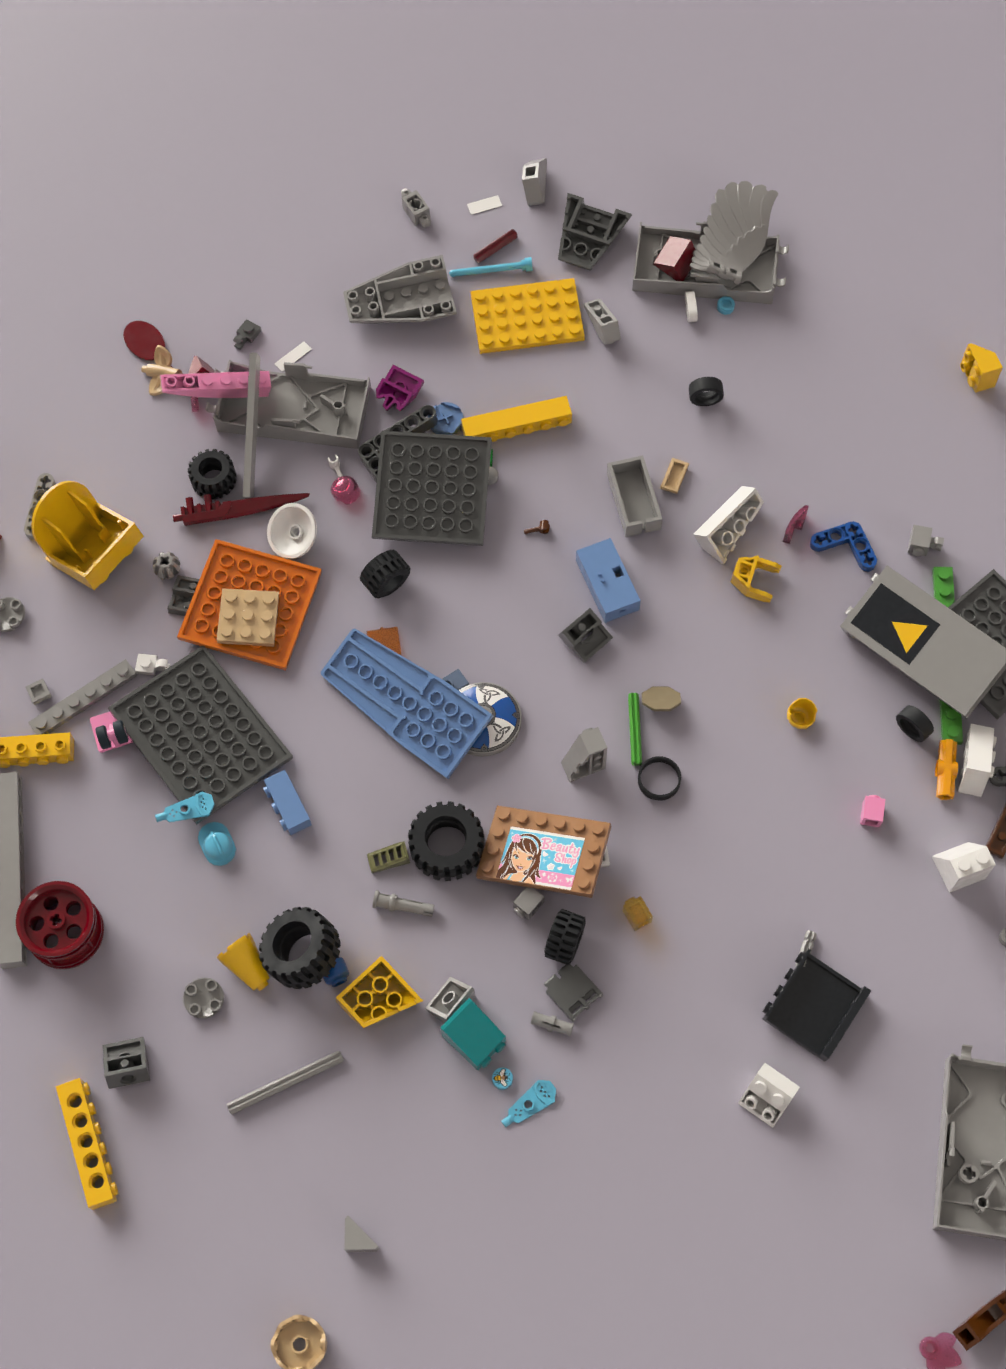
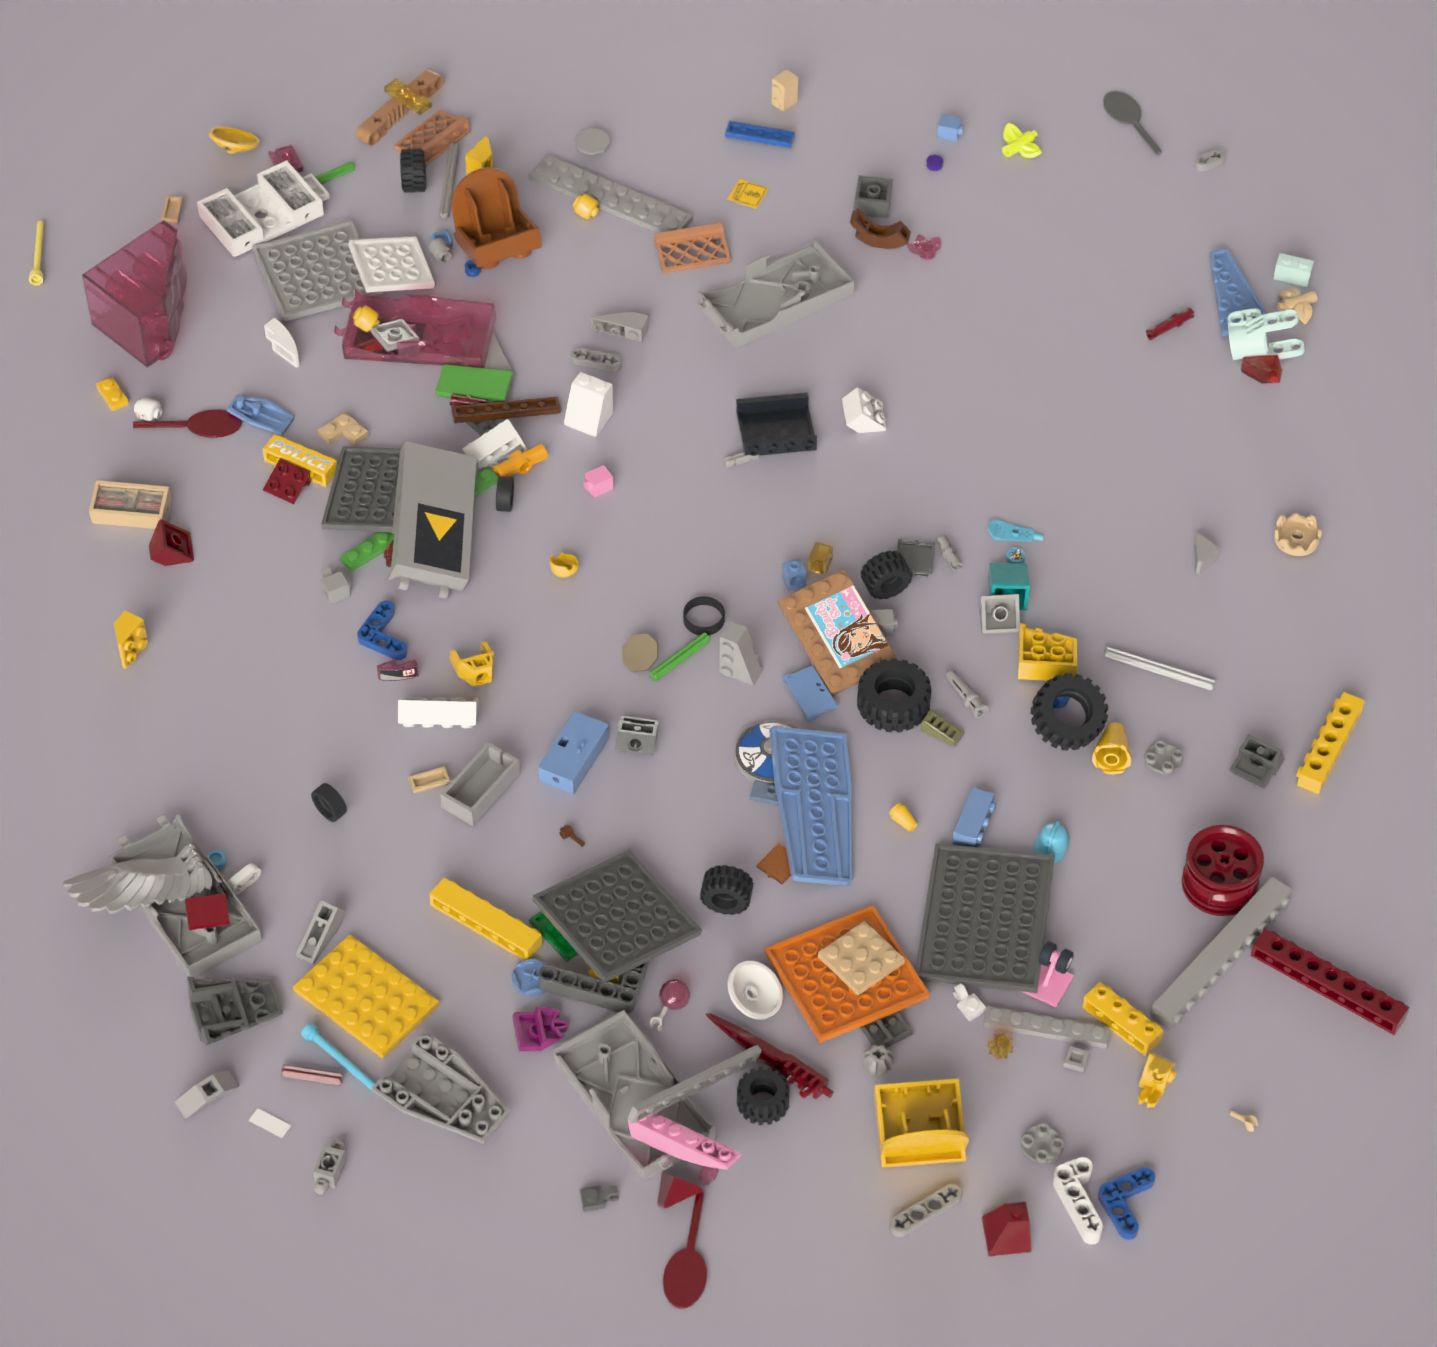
camera: 135 degrees left, 15 degrees down
(97, 651) = (1000, 1046): none -> clear yellow gear
(163, 362) = (707, 1225): tan plant -> none
(194, 808) = (1041, 862): medium azure piece -> none
(293, 355) = (582, 1145): white sticker -> none
(337, 756) = (903, 817): none -> yellow cone
(514, 790) = (811, 698): none -> medium blue door
(637, 876) = (794, 574): none -> medium blue brick

